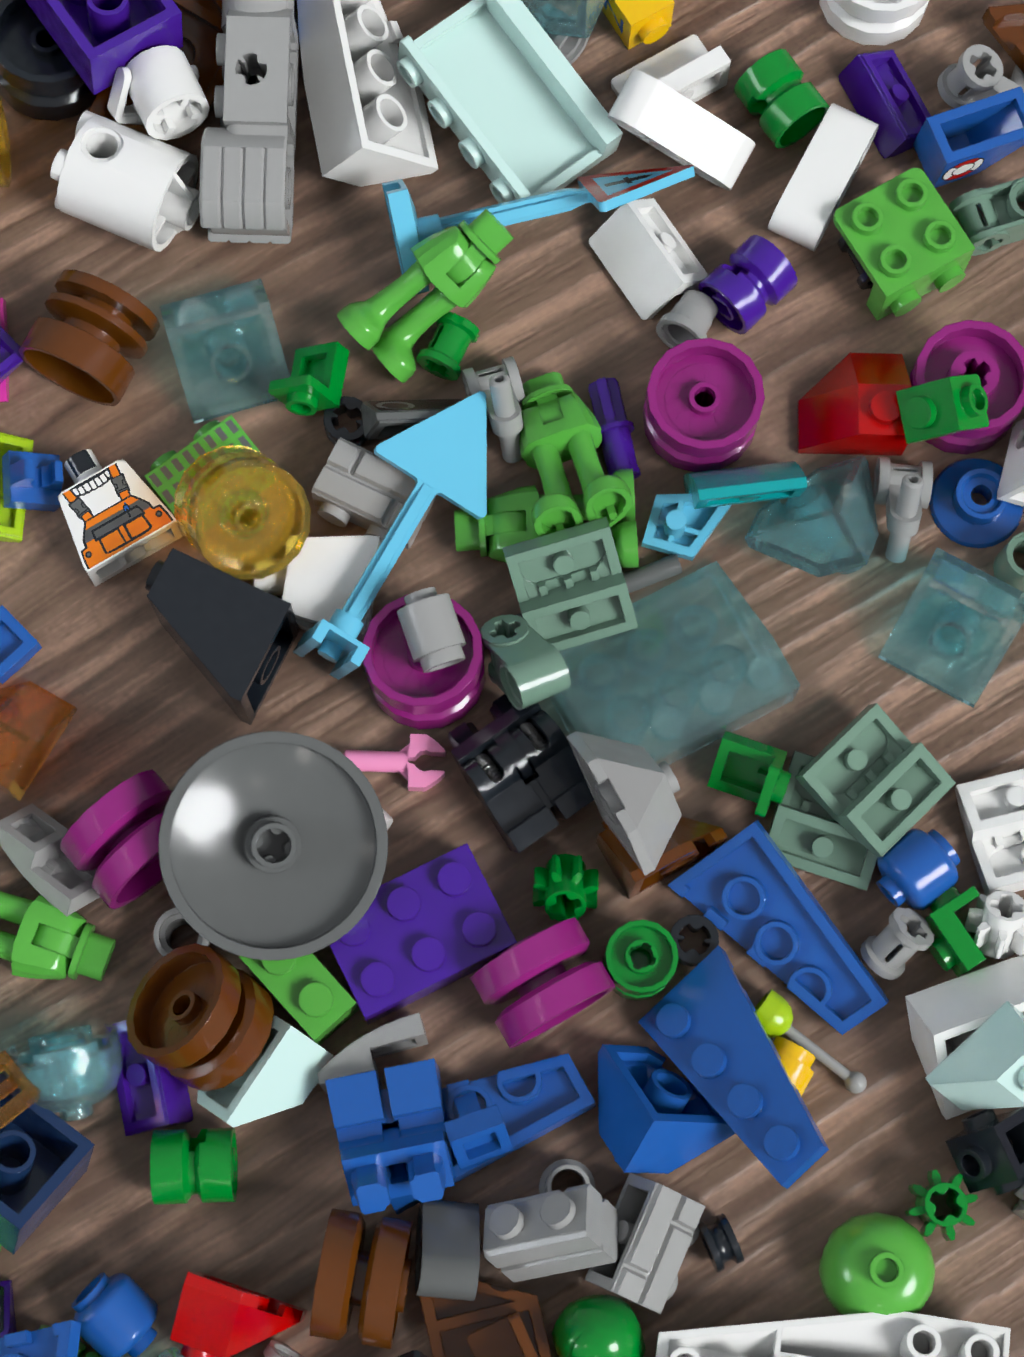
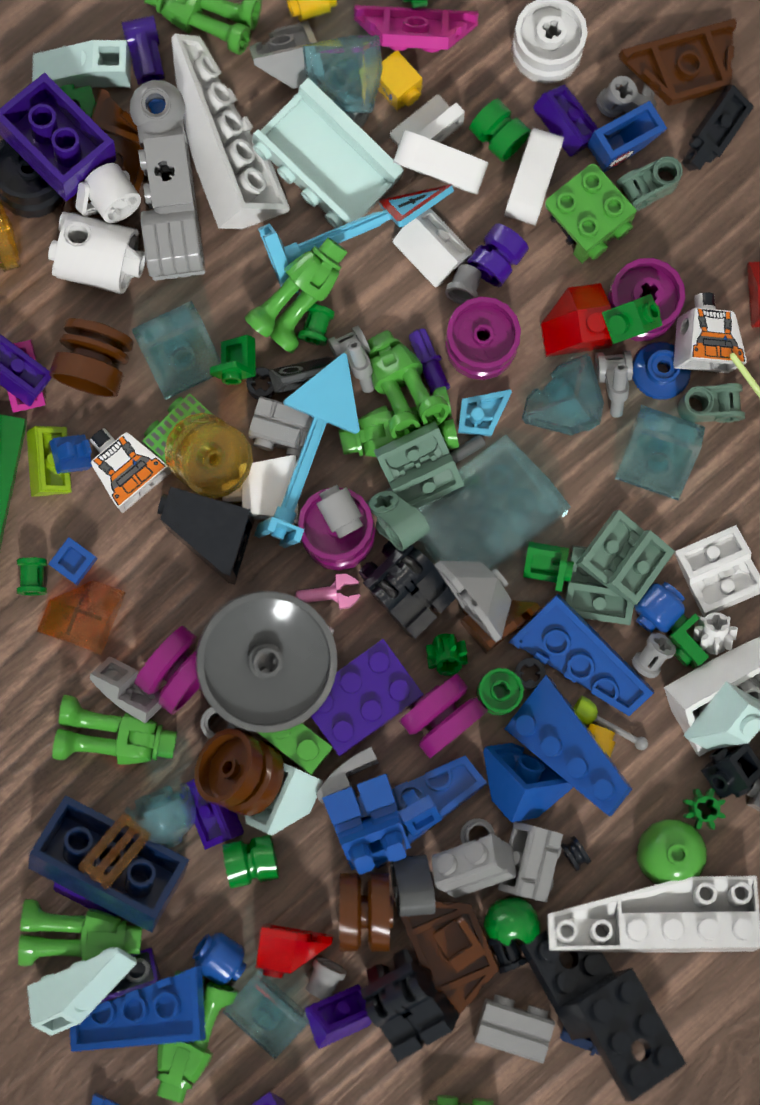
camera: 10 degrees left, 5 degrees up
(745, 484) = (516, 384): teal slope -> none

